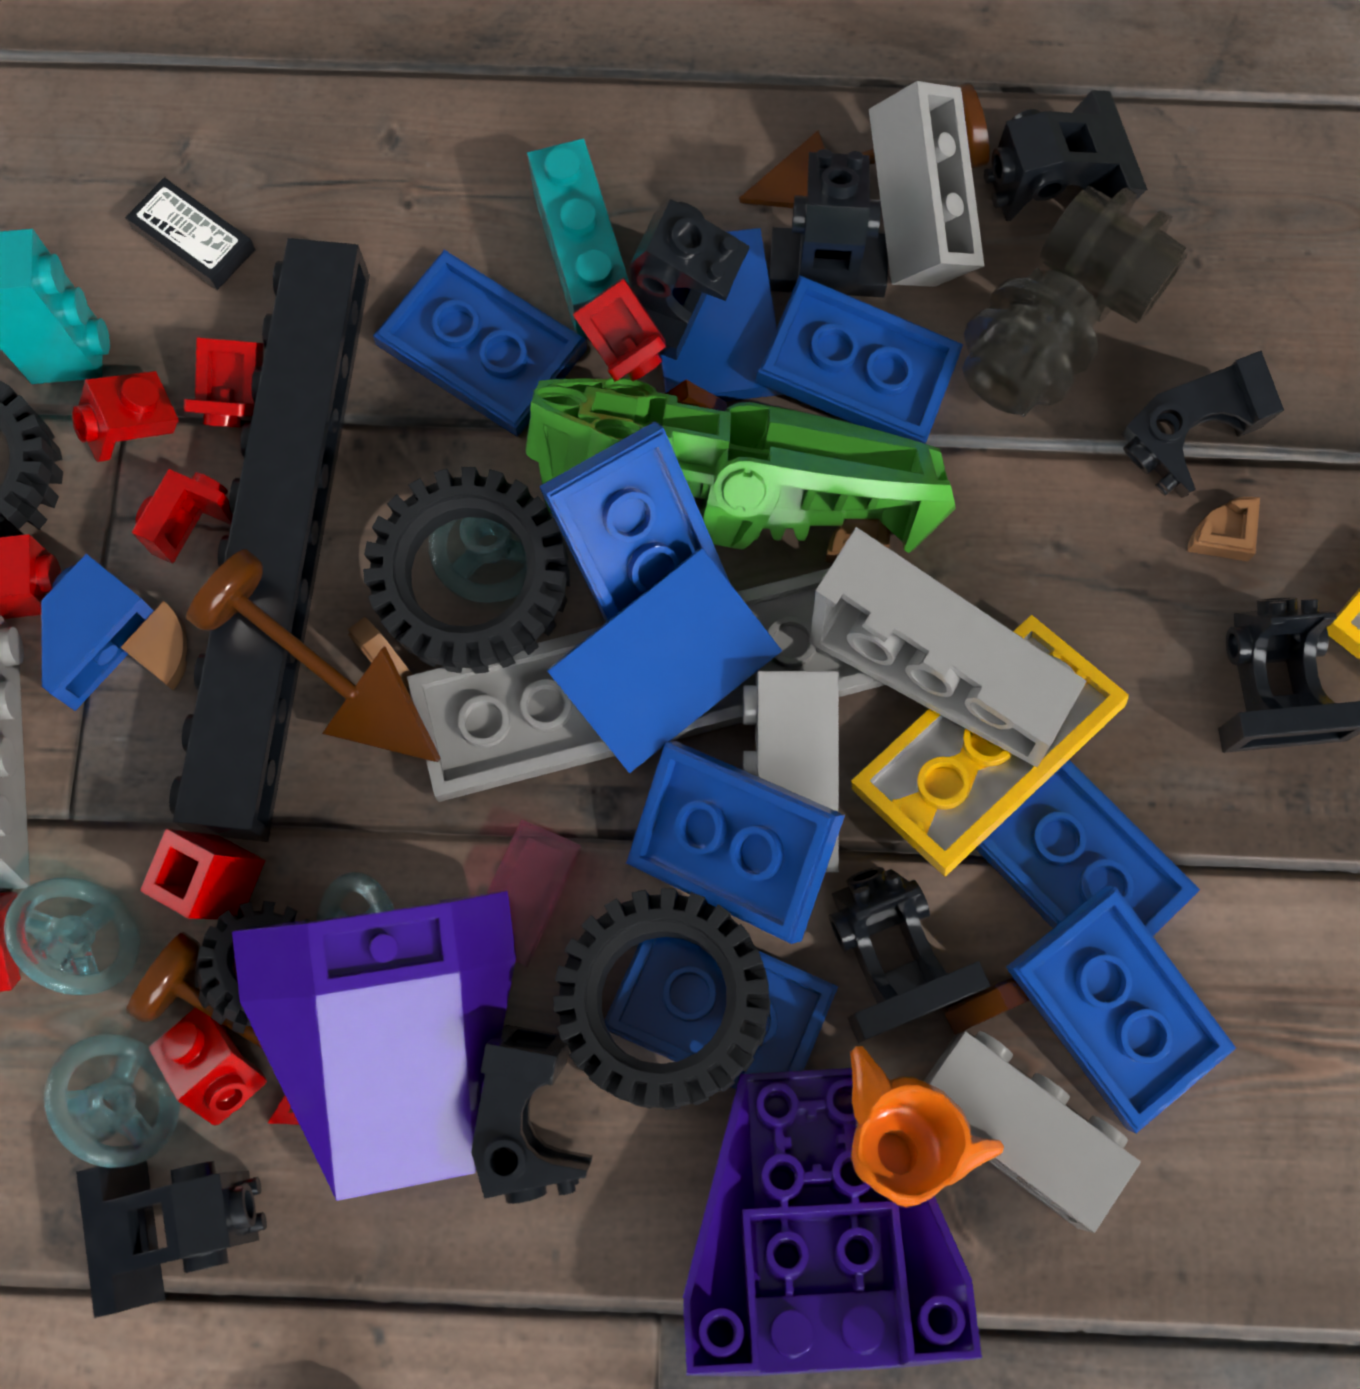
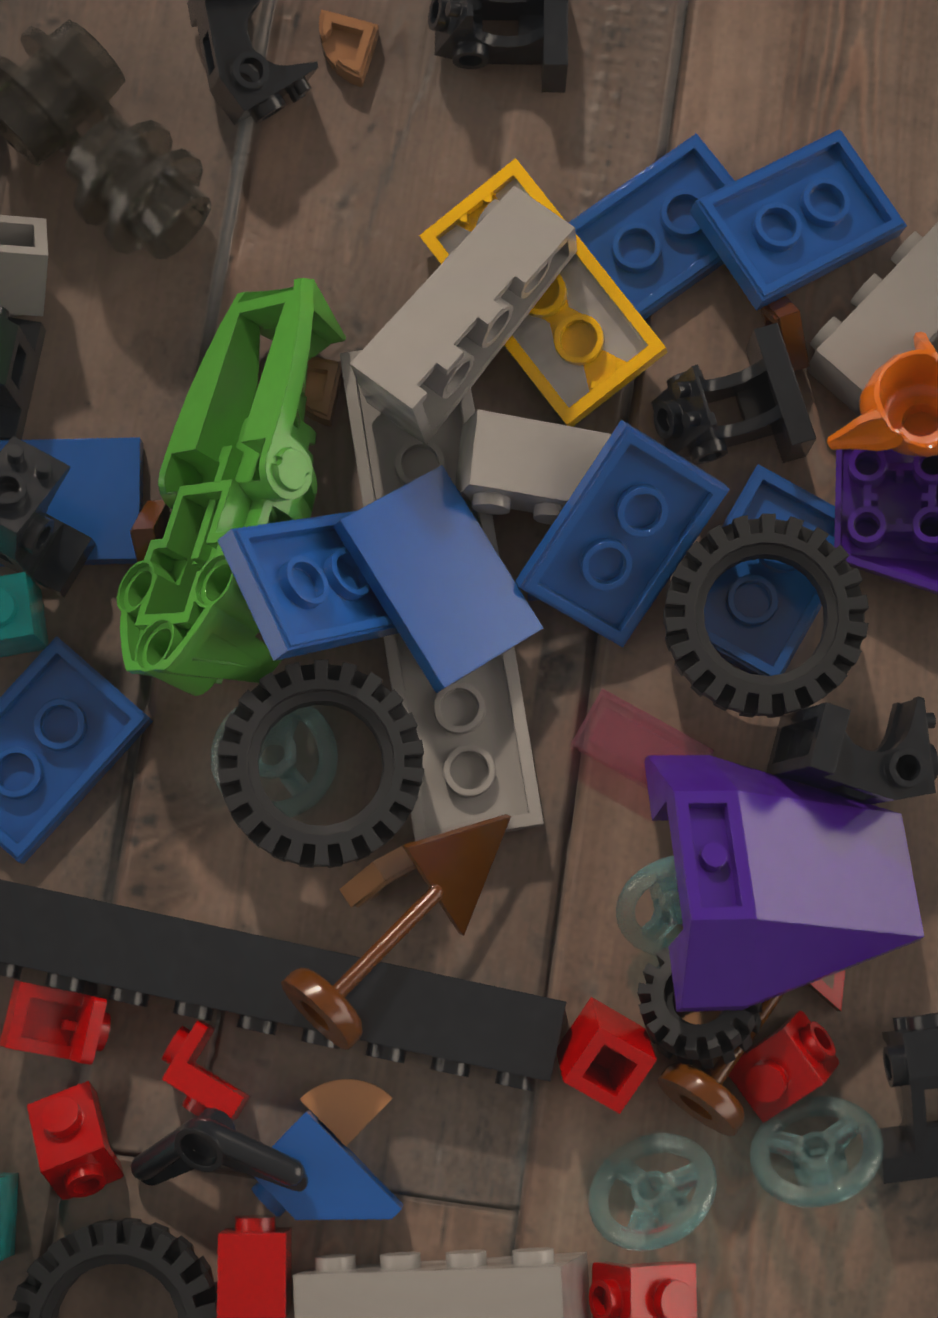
camera: 85 degrees left, 5 degrees up
(108, 517) = (212, 1142): none -> black piece
(621, 332) = (76, 585): red bracket -> none
(859, 362) = (125, 361): blue tile -> none

